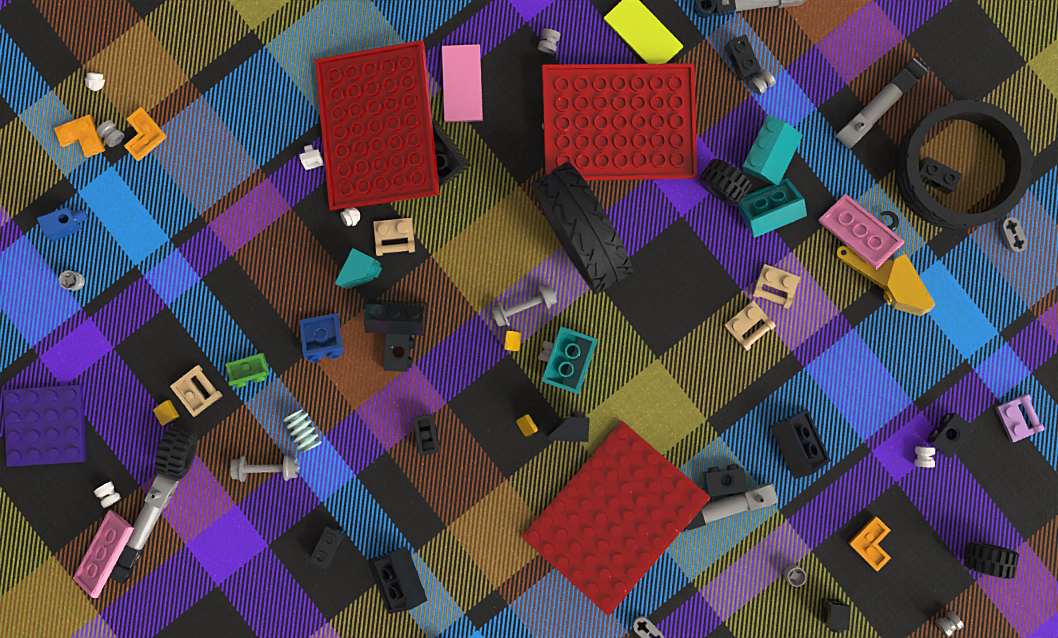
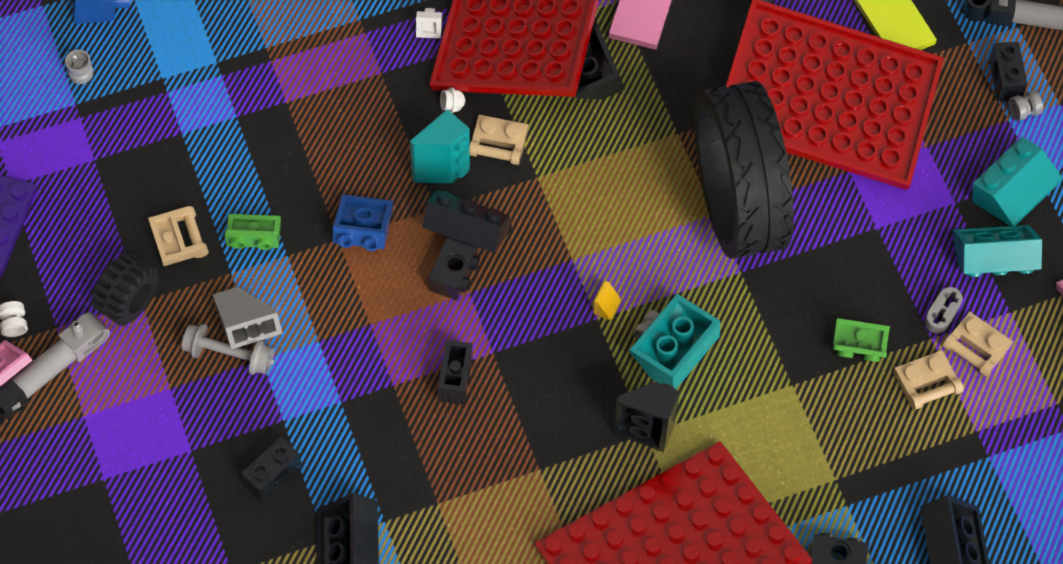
camera: 20 degrees right, 25 degrees down
(165, 412) = (128, 244): yellow slope -> none
(266, 446) = (245, 317): none -> light grey slope
(302, 431) = (294, 319): light aqua piece -> none
(527, 425) = (591, 407): yellow slope -> none
(547, 296) = (670, 260): light grey piece -> none
(696, 313) = (860, 338): none -> bright green bracket
(725, 182) = (944, 194): black tyre -> none
(750, 268) = (948, 313): none -> light grey beam

